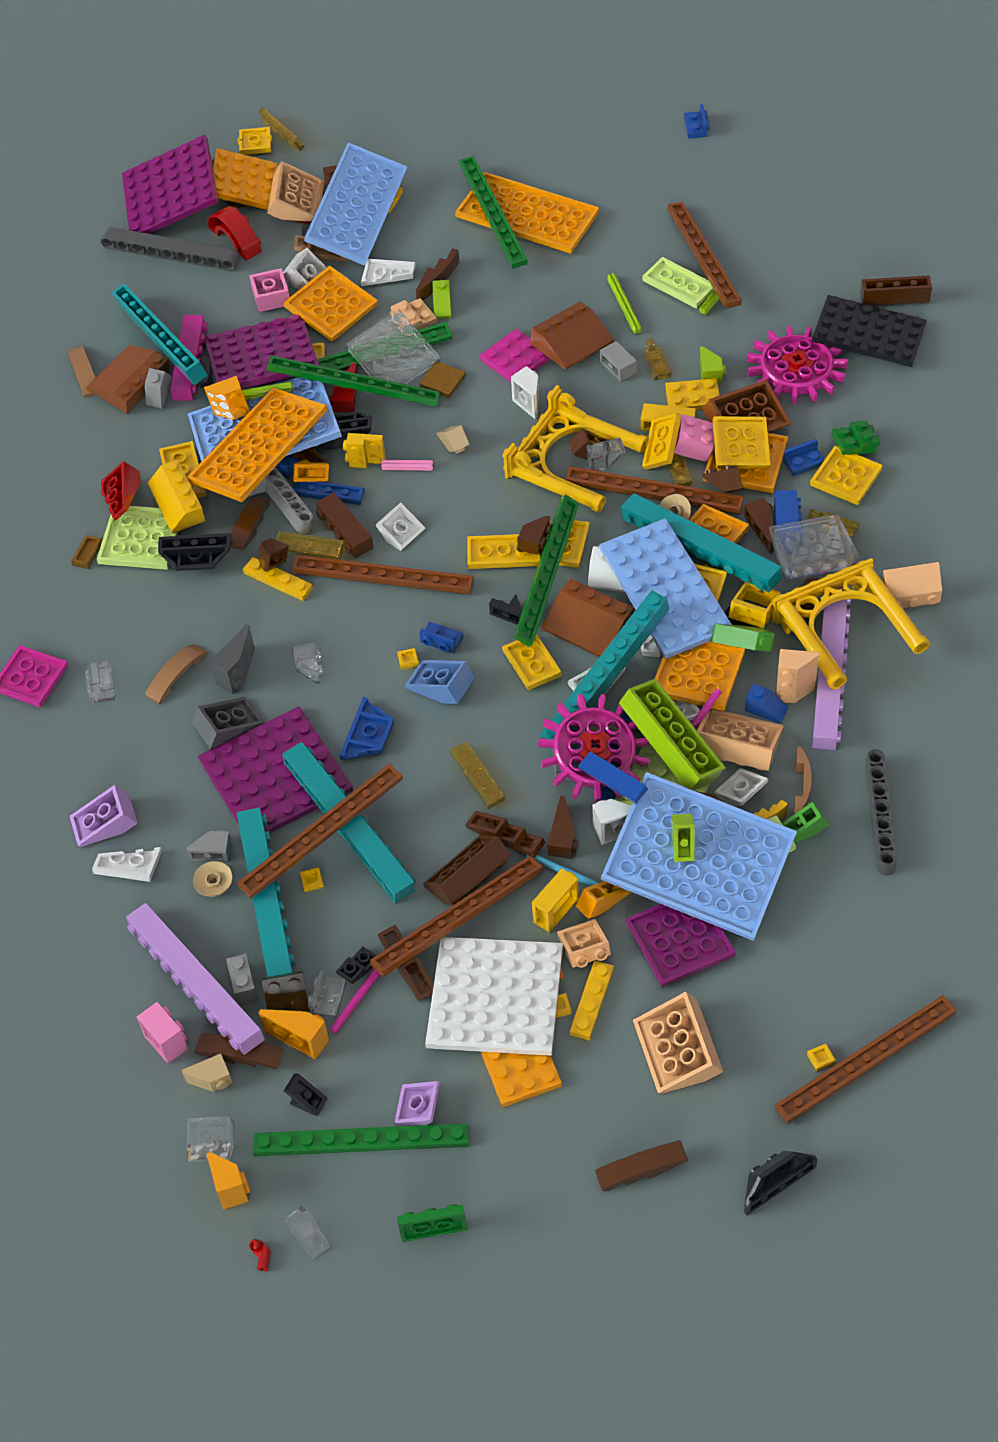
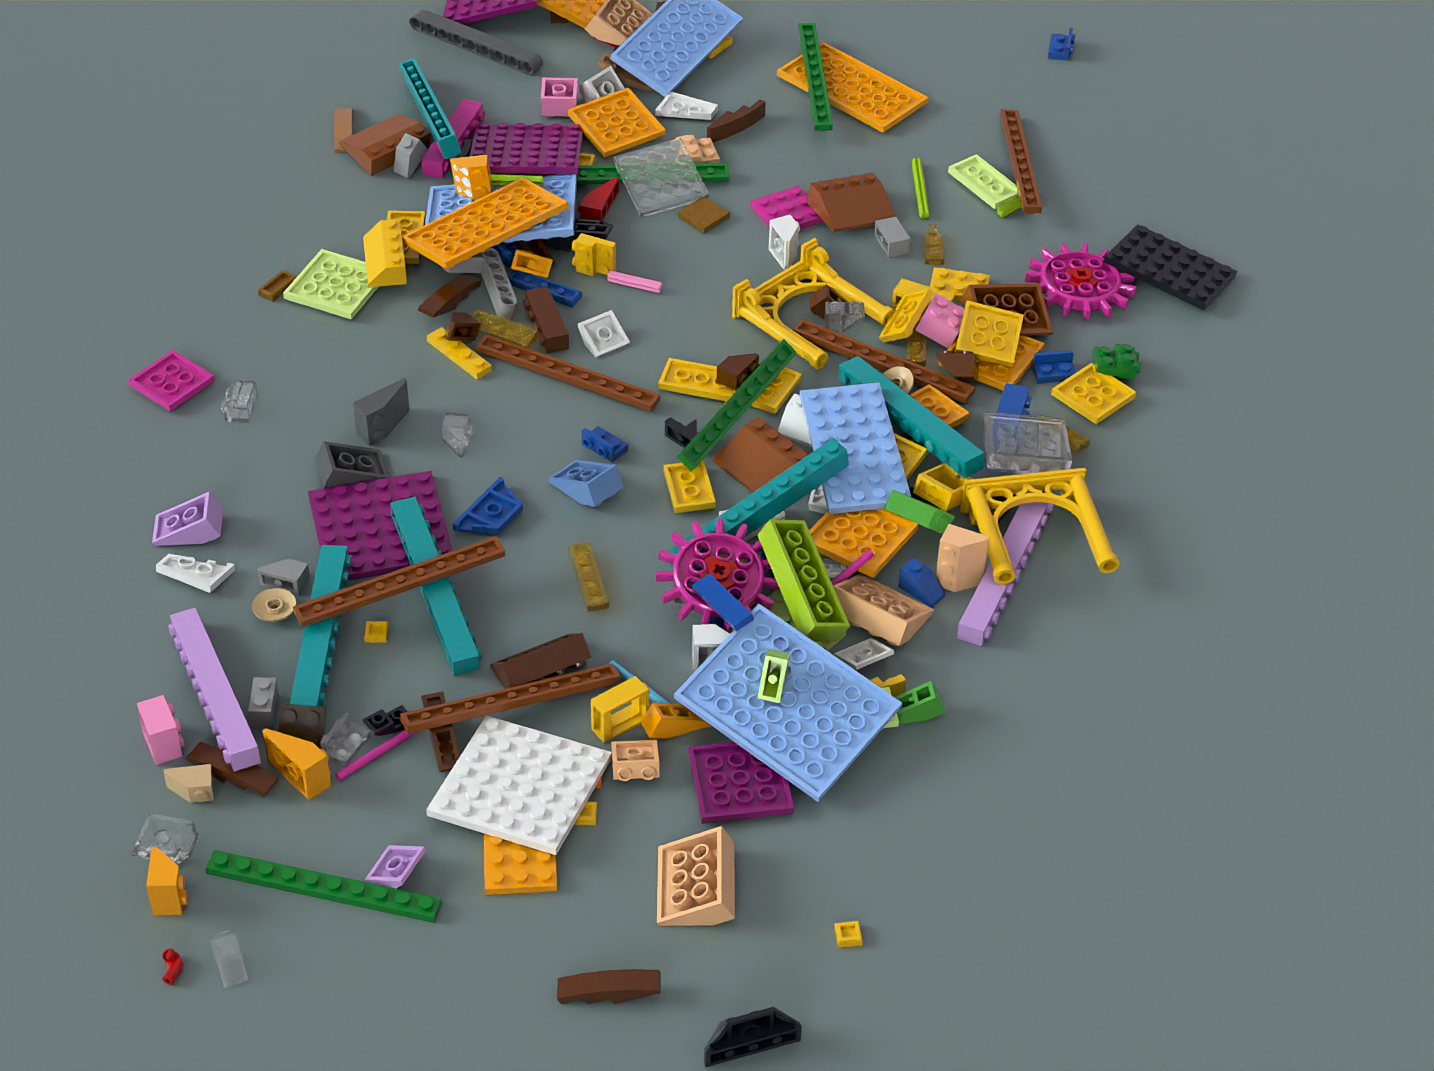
camera: 10 degrees right, 10 degrees down
(120, 488) = (335, 233): red wedge -> none
(172, 671) = (315, 408): medium nougat slope -> none
(194, 551) = (383, 305): black wedge -> none
(237, 229) = (549, 38): red brick -> none
(305, 1095) = (281, 826): black slope -> none
(353, 381) = (607, 190): green plate -> none
(408, 659) = (561, 455): yellow tile -> none
(432, 1222) = (361, 979): green plate -> none
(442, 299) = (731, 142): lime slope -> none
(453, 438) = (691, 267): tan slope -> none
(510, 835) = (597, 639): reddish brown slope -> none
(562, 835) = (652, 655): reddish brown slope -> none
(591, 1000) = (622, 816): yellow plate -> none
(711, 365) = (988, 261): lime slope -> none
(760, 517) = (979, 404): reddish brown slope -> none
(803, 767) = (937, 654): medium nougat slope -> none
(865, 1059) = (895, 947): dark orange plate -> none
(881, 819) = (1006, 715): dark grey beam -> none
(896, 290) = (1213, 236): reddish brown brick -> none
(914, 584) = (1125, 507): light nougat slope -> none

